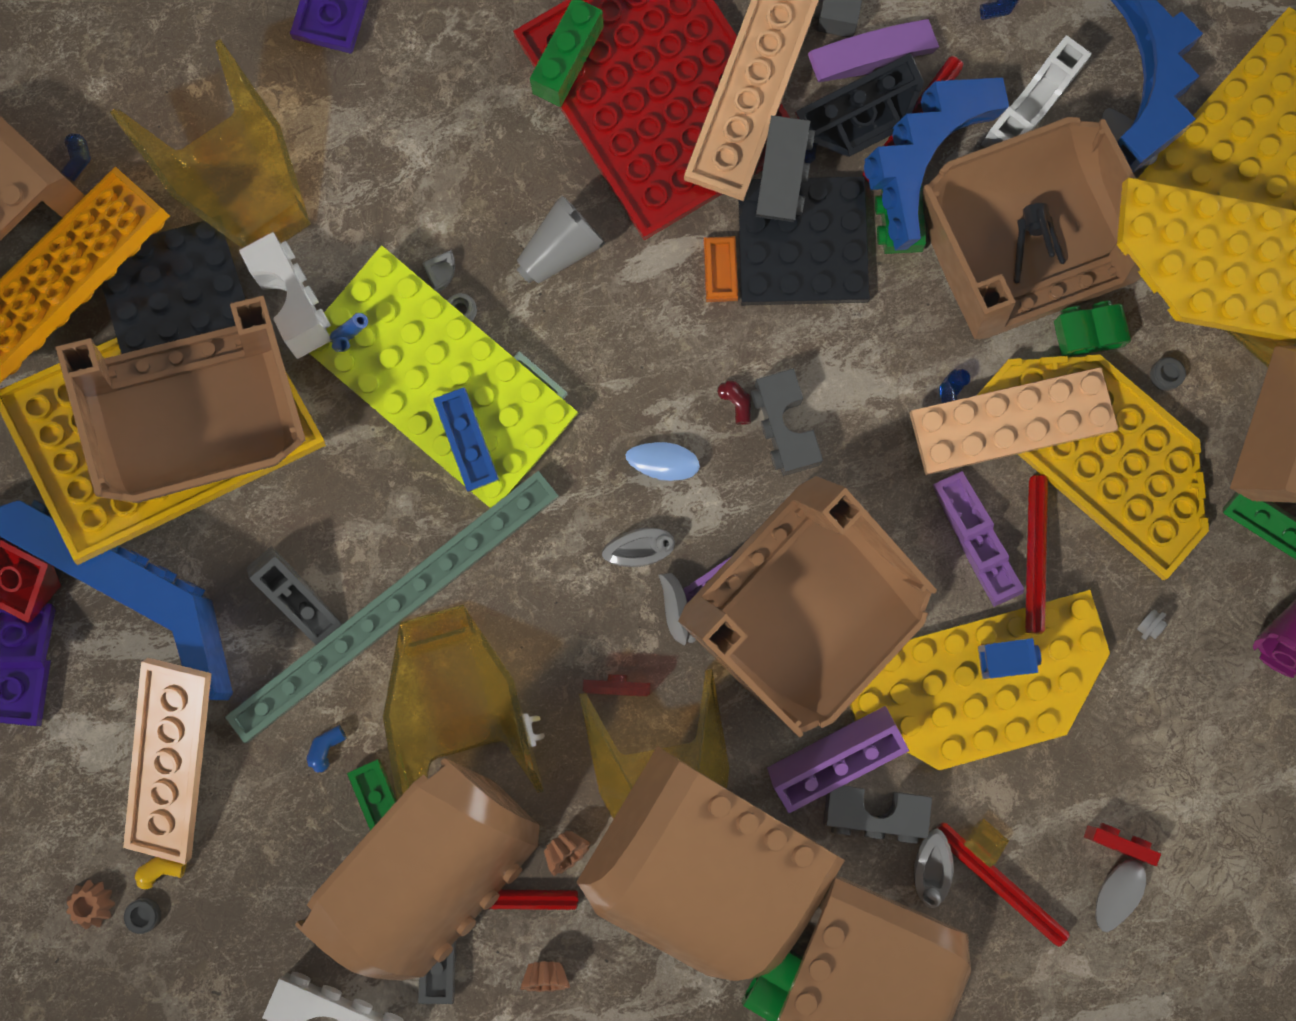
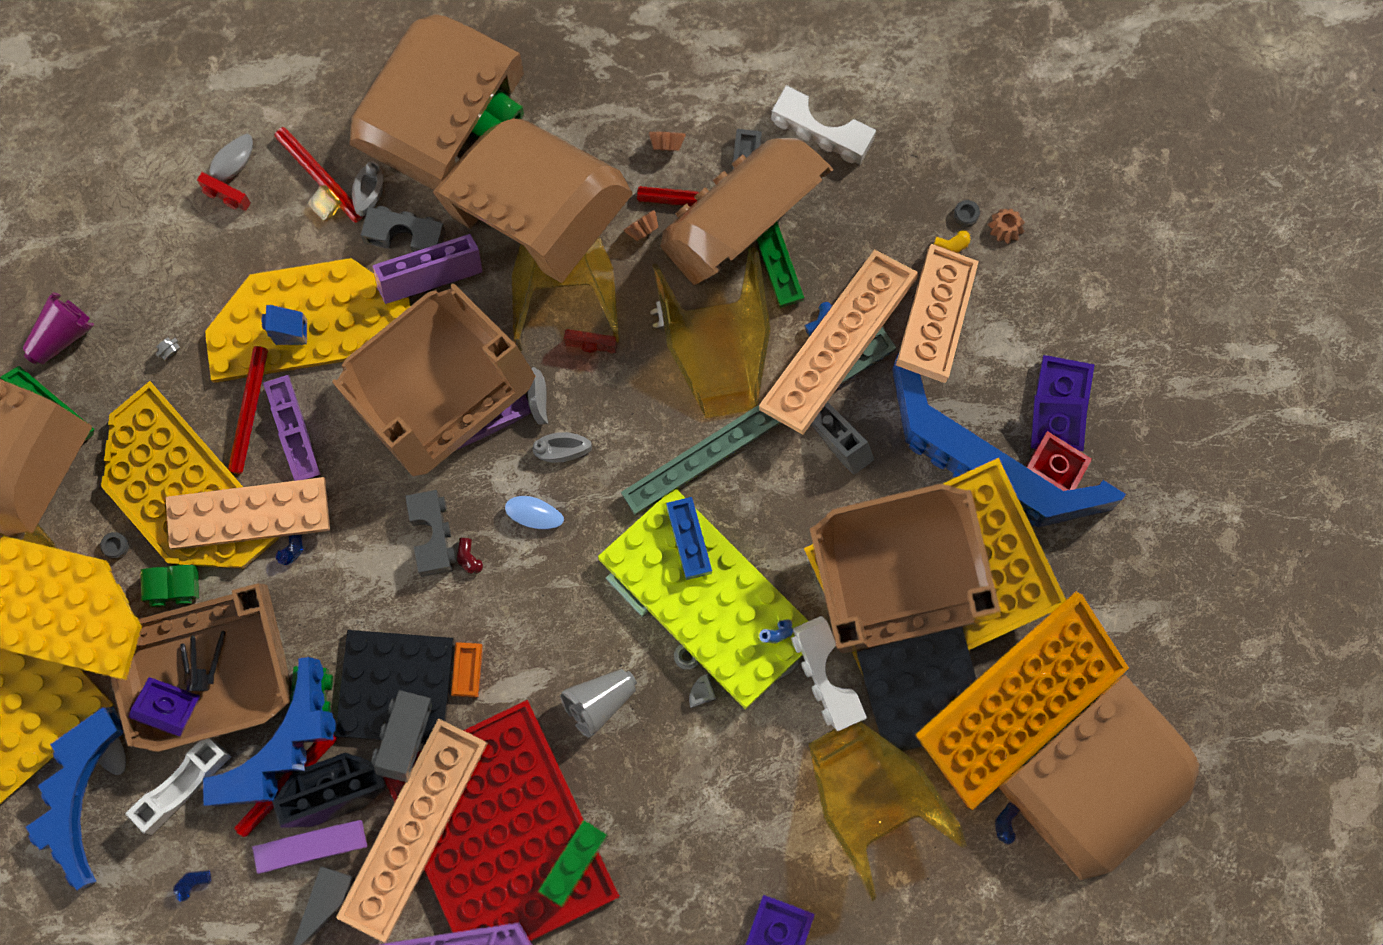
camera: 175 degrees left, 5 degrees down
(295, 716) = (838, 341): none -> light nougat plate
(1070, 177) = (164, 706): none -> dark purple plate

